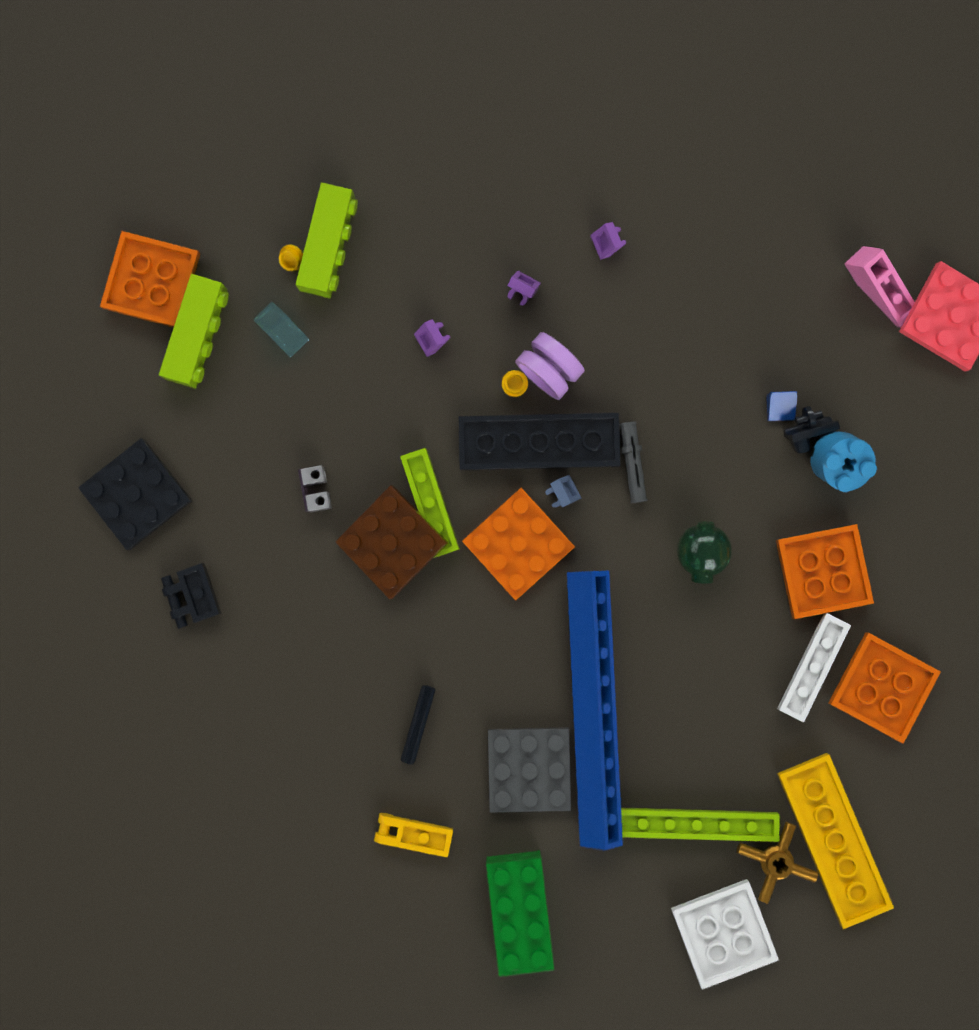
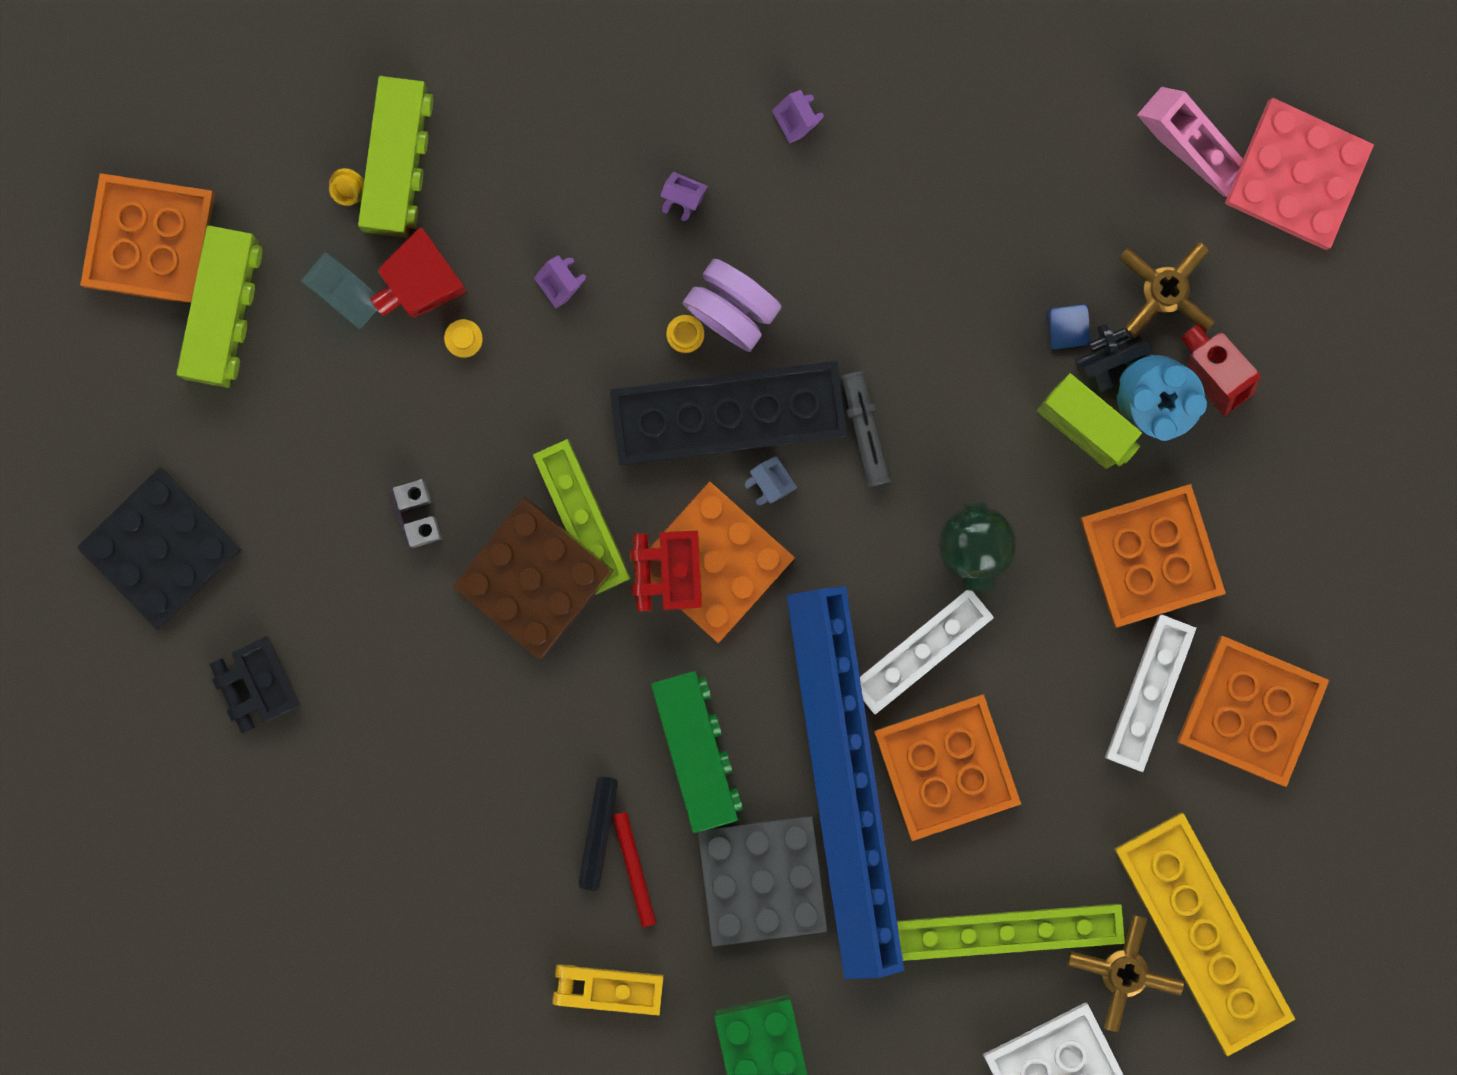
camera: 10 degrees left, 0 degrees up
(332, 326) = (417, 278): none -> red torso
(360, 370) = (463, 338): none -> yellow plate
(440, 751) = (634, 869): none -> red bar
(491, 675) = (695, 751): none -> green brick
(493, 549) = (678, 568): none -> red plate
(658, 620) = (923, 650): none -> white plate
(666, 704) = (947, 767): none -> orange plate
(792, 474) = (1090, 423): none -> lime brick
(860, 391) = (1179, 293): none -> pearl gold bar
(888, 444) = (1231, 379): none -> red torso

